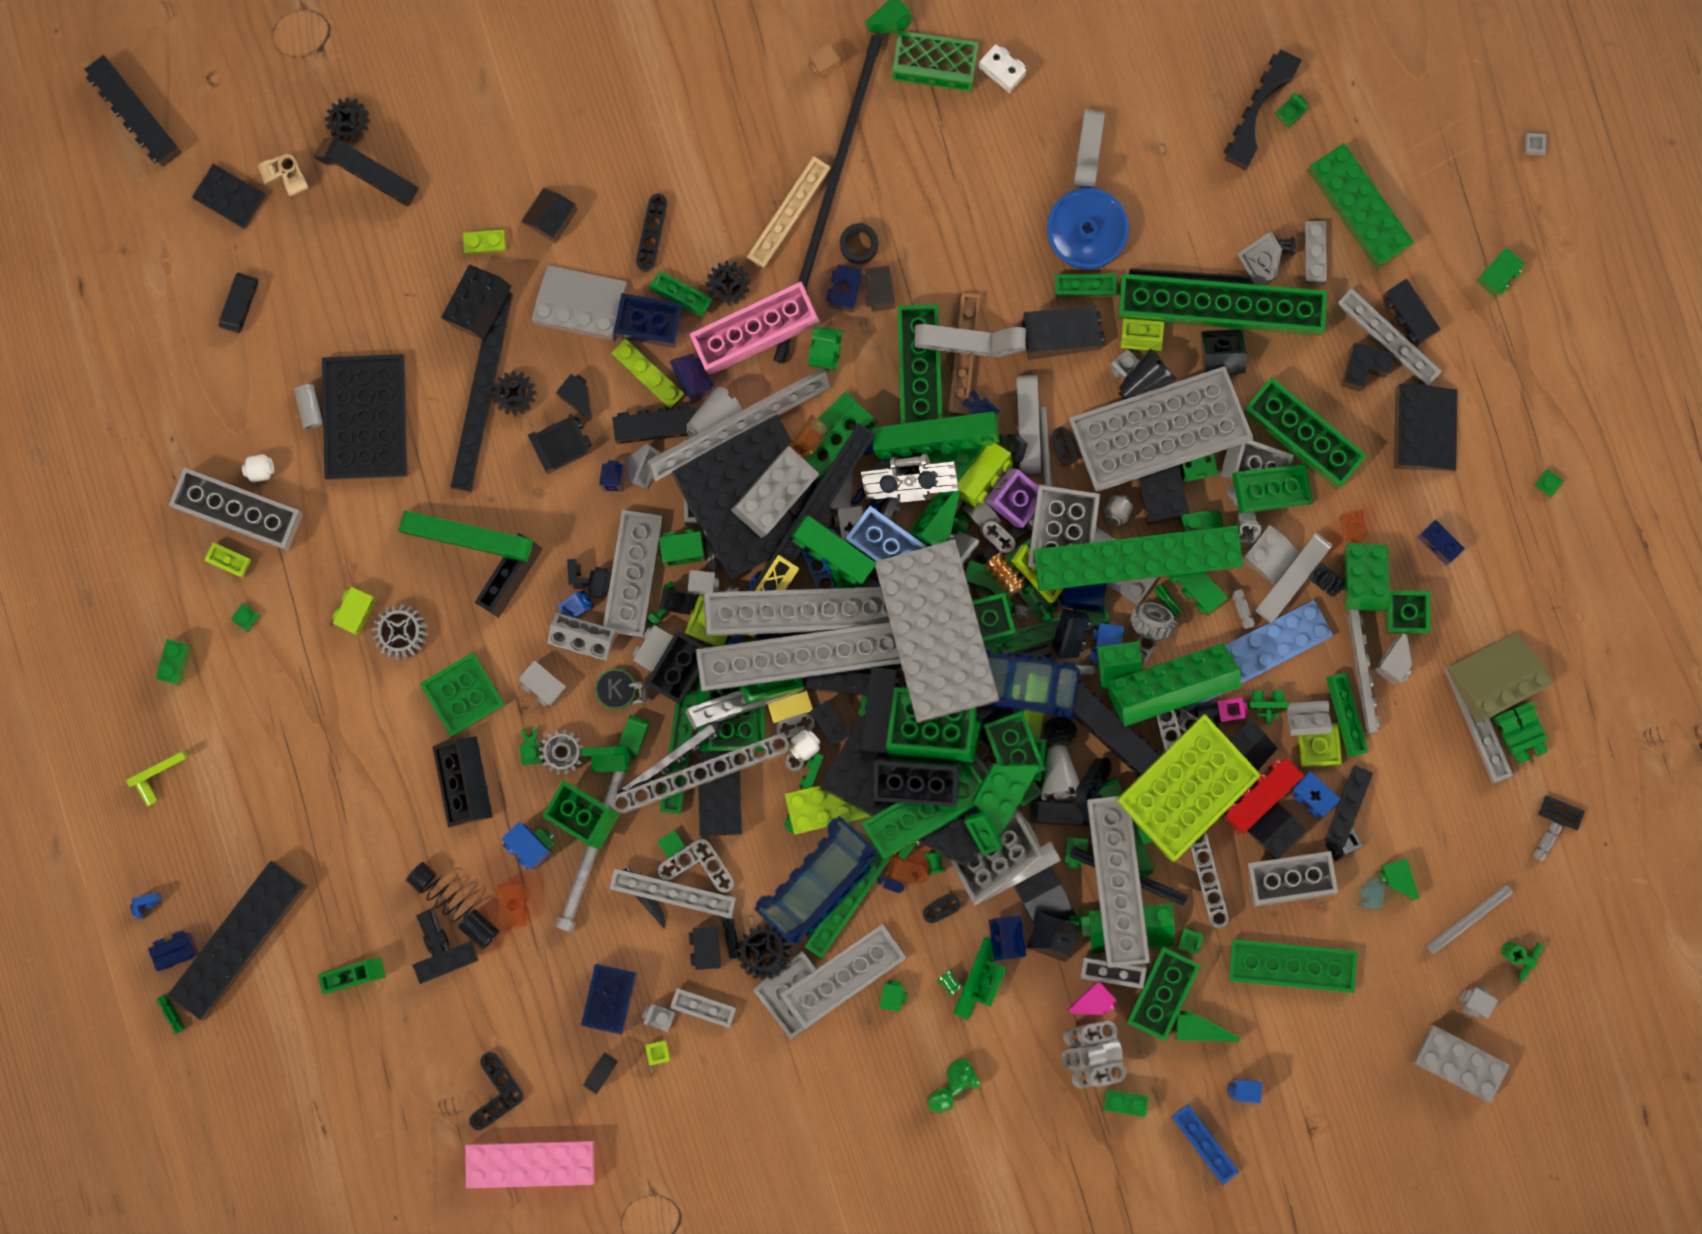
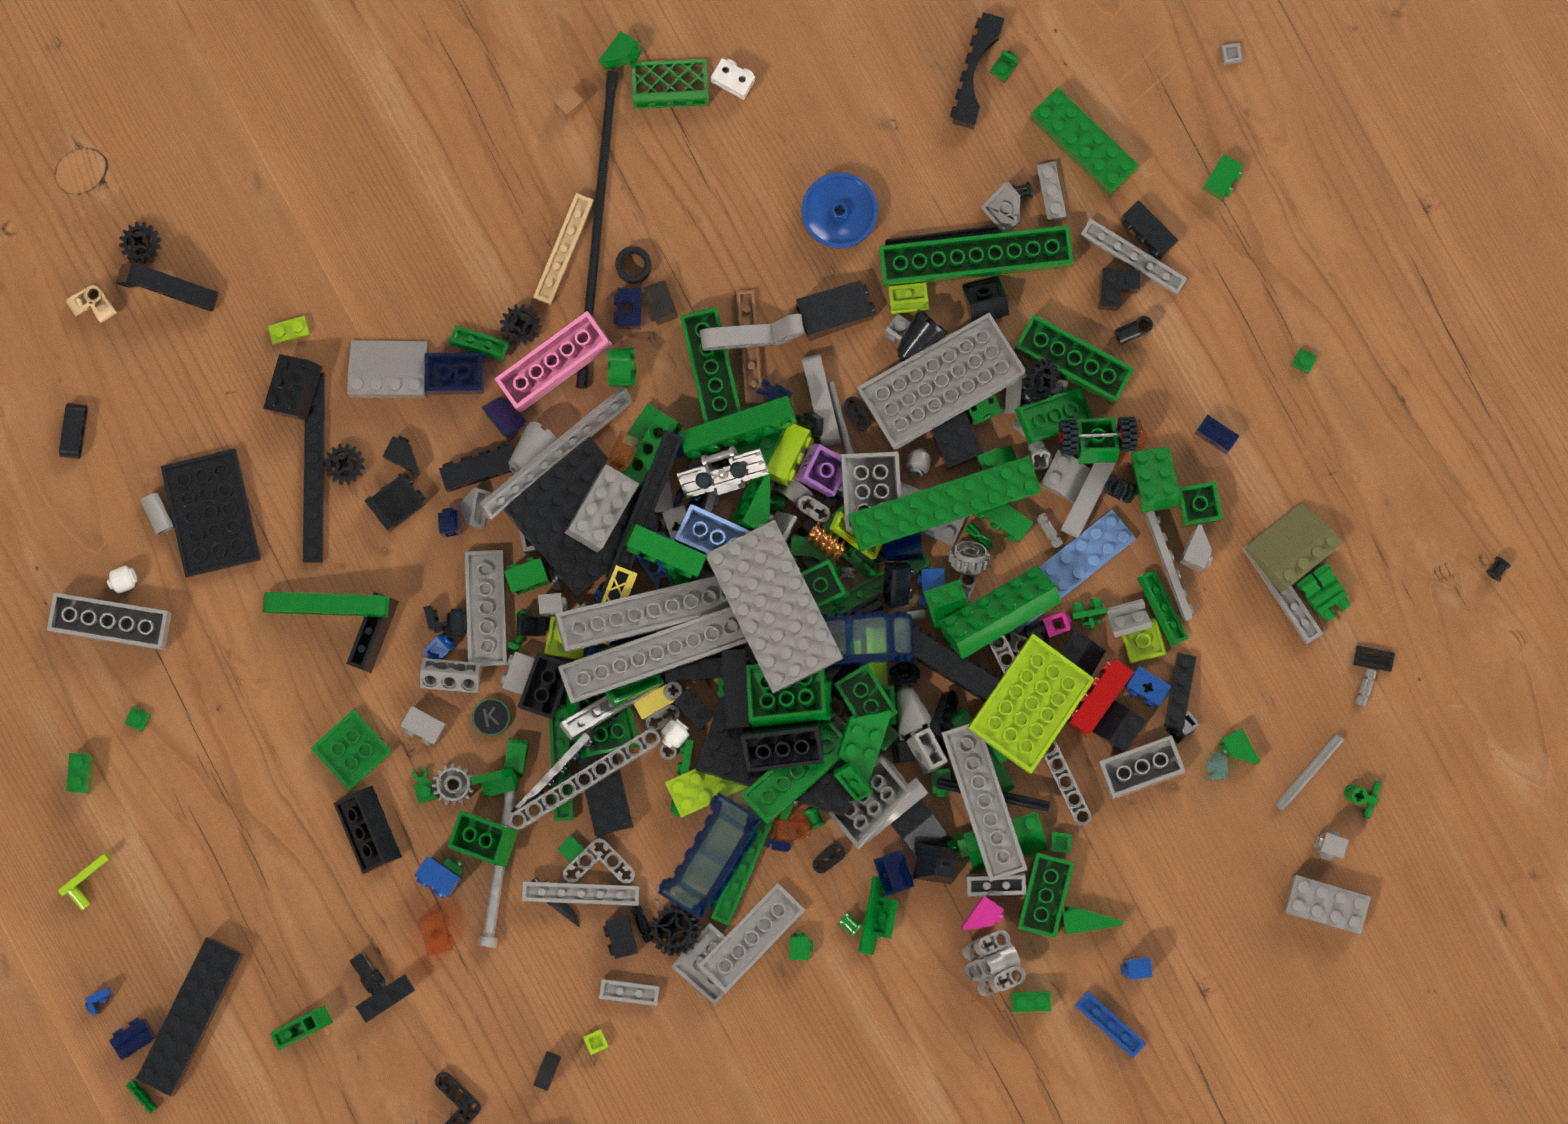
camera: 15 degrees left, 0 degrees up
(227, 560) = (110, 669): lime plate -> none
(228, 196) = (44, 334): black plate -> none
(353, 610) = (236, 693): lime brick -> none
(413, 643) = (278, 711): light grey gear -> none
(473, 924) = (403, 959): black piece -> none
(550, 214) = (344, 293): black slope -> none
(609, 999) = (541, 1001): clear blue brick -> none
(639, 685) = (512, 710): light grey piece -> none
(648, 374) = (463, 422): lime plate -> none
(654, 233) = (441, 292): black beam -> none
(658, 1017) = (590, 1009): light grey bracket -> none
(806, 703) = (672, 697): none -> light grey bush
(959, 1077) = (875, 1008): green animal -> none
(1067, 816) = (927, 751): none -> light grey brick
(1085, 284) = (848, 262): green plate -> none
(1089, 149) = (826, 137): light grey beam -> none
(1265, 447) = (1040, 379): none -> black gear
(1292, 966) = (1158, 846): green plate -> none
(1314, 522) = (1097, 438): none -> brick
(1372, 415) = (1132, 331): none -> black piece
(1425, 427) = (1182, 332): black slope -> none

